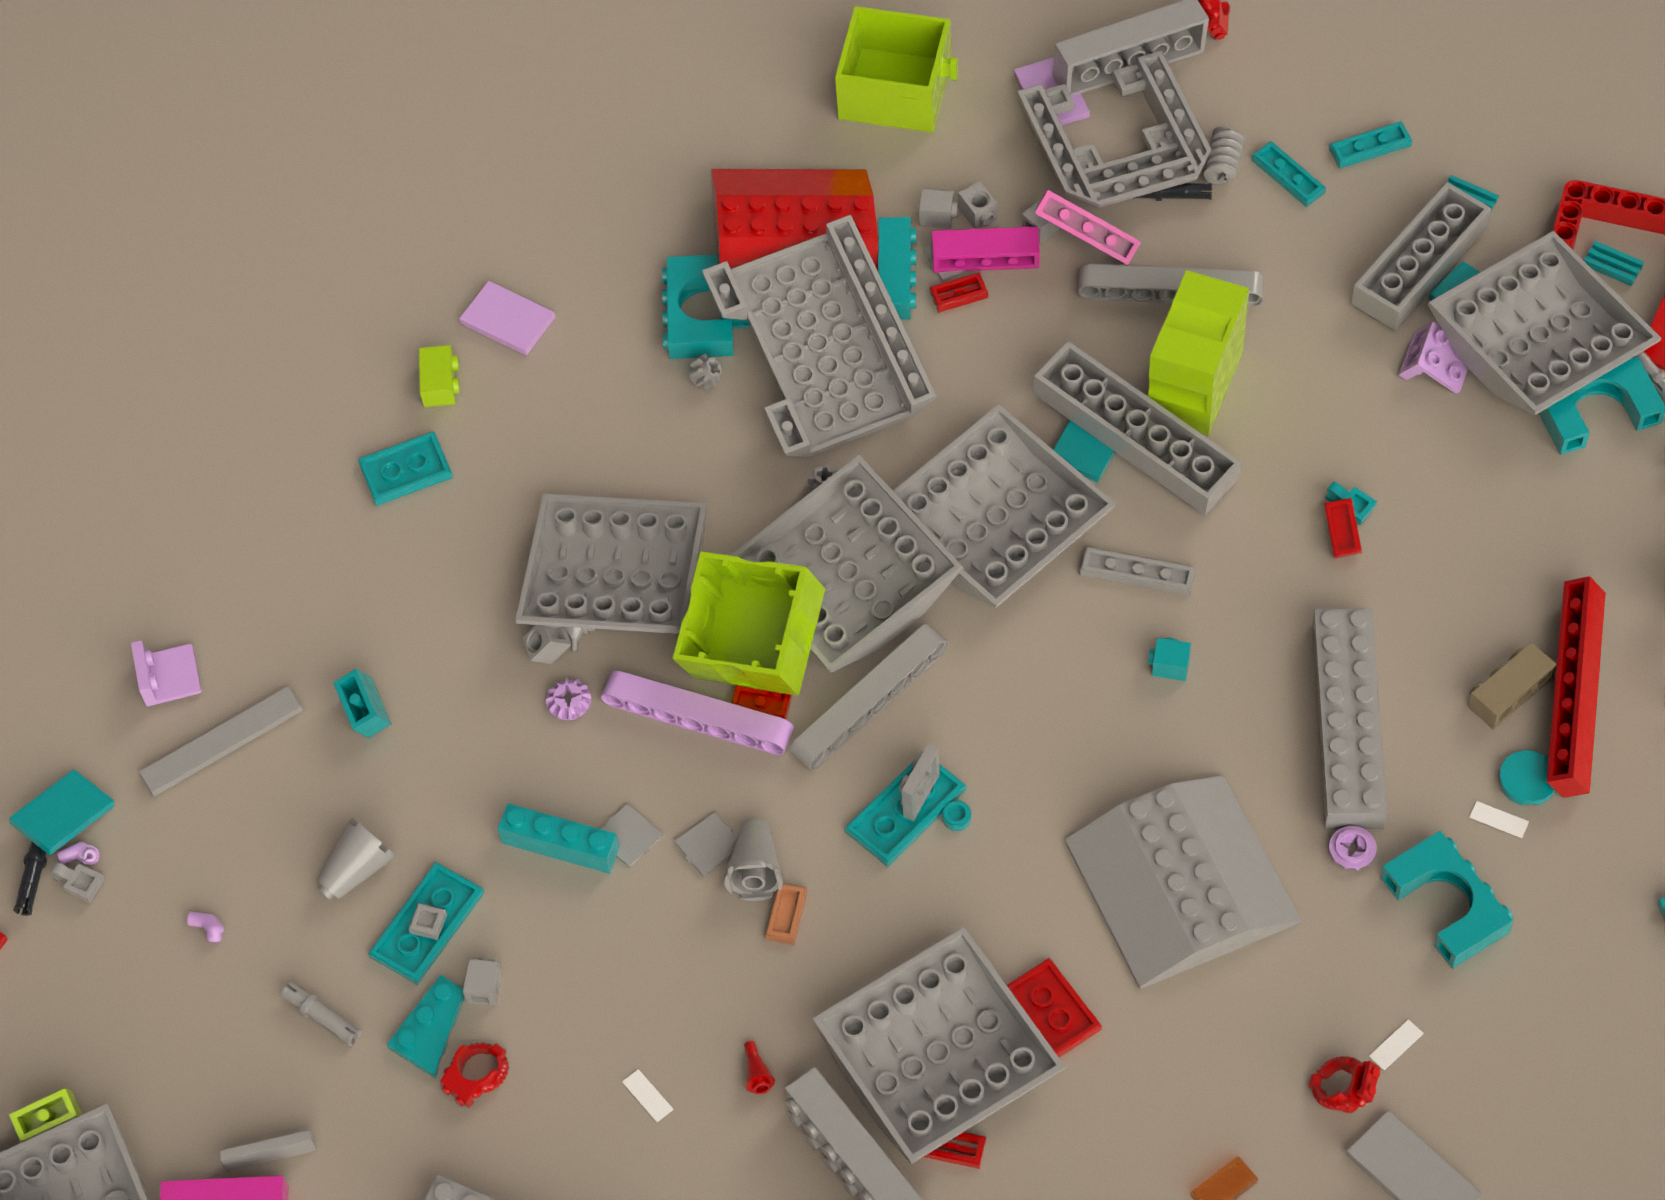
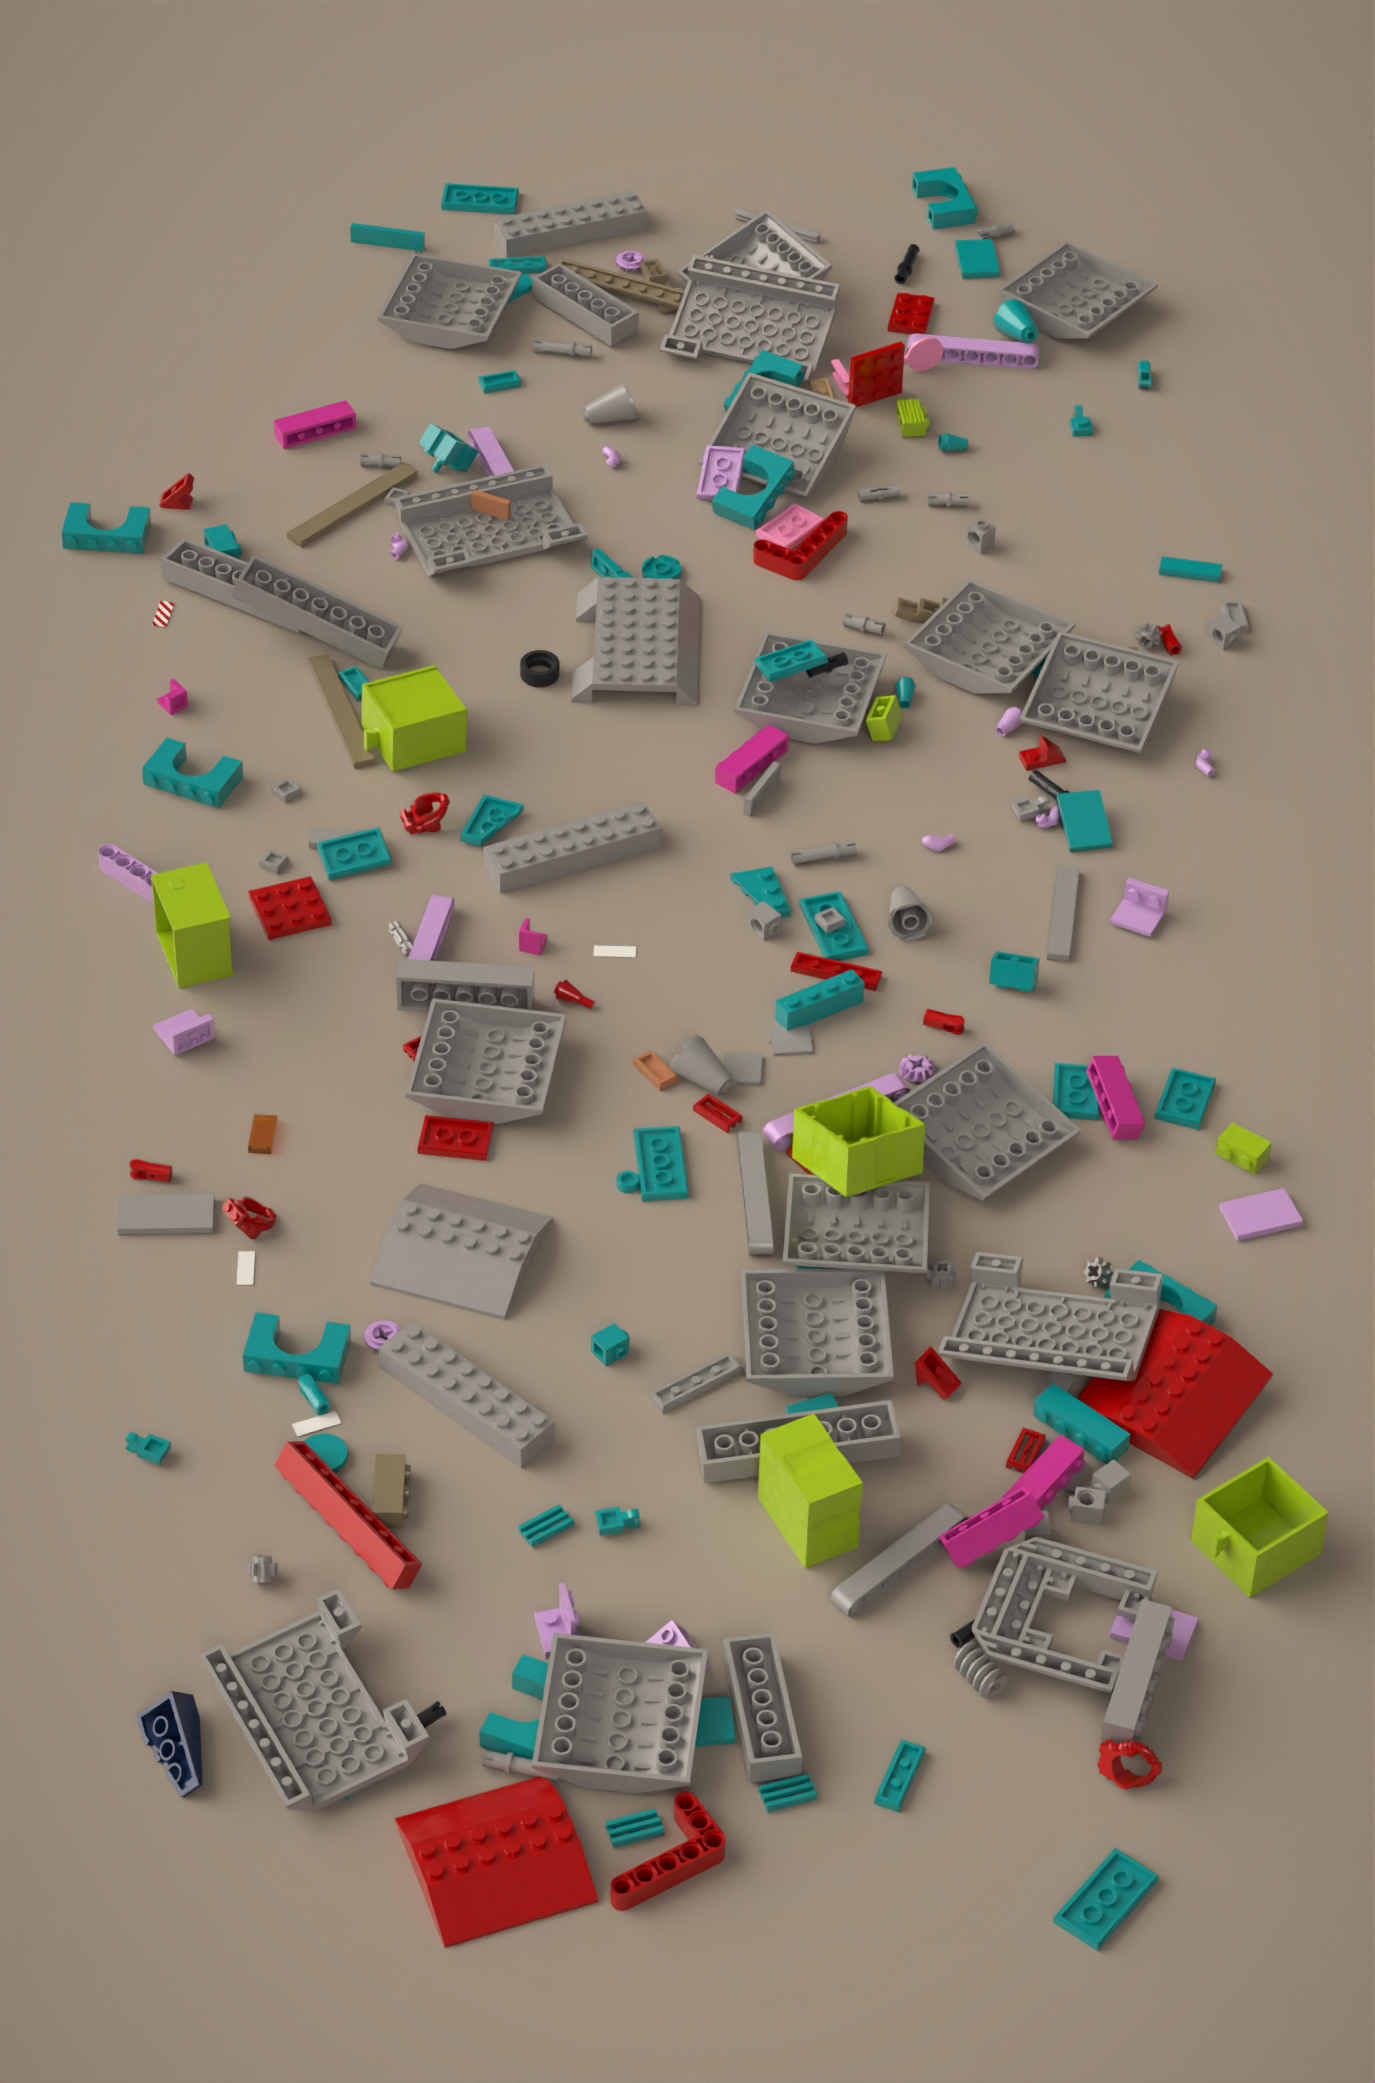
camera: 125 degrees right, 15 degrees down
(464, 1089) = (711, 877): red piece -> none
(466, 505) = (1115, 1097): none -> dark pink brick
(476, 555) = (1074, 1092): none -> teal tile
(483, 722) = (944, 1021): none -> red bar
(492, 870) = (828, 968): none -> red tile
(711, 1176) = (531, 941): none -> dark pink panel
(791, 836) = (715, 1114): none -> red tile
(920, 782) = (659, 1154): light grey plate -> none
(950, 400) = (935, 1371): none -> red slope
(1288, 174) = (927, 1706): teal tile -> none
(1343, 528) = (600, 1497): red tile -> none
(1409, 546) = (542, 1523): none -> teal tile
(1478, 840) = (313, 1394): none -> teal bar
(1501, 450) = (558, 1620): none -> lavender bracket

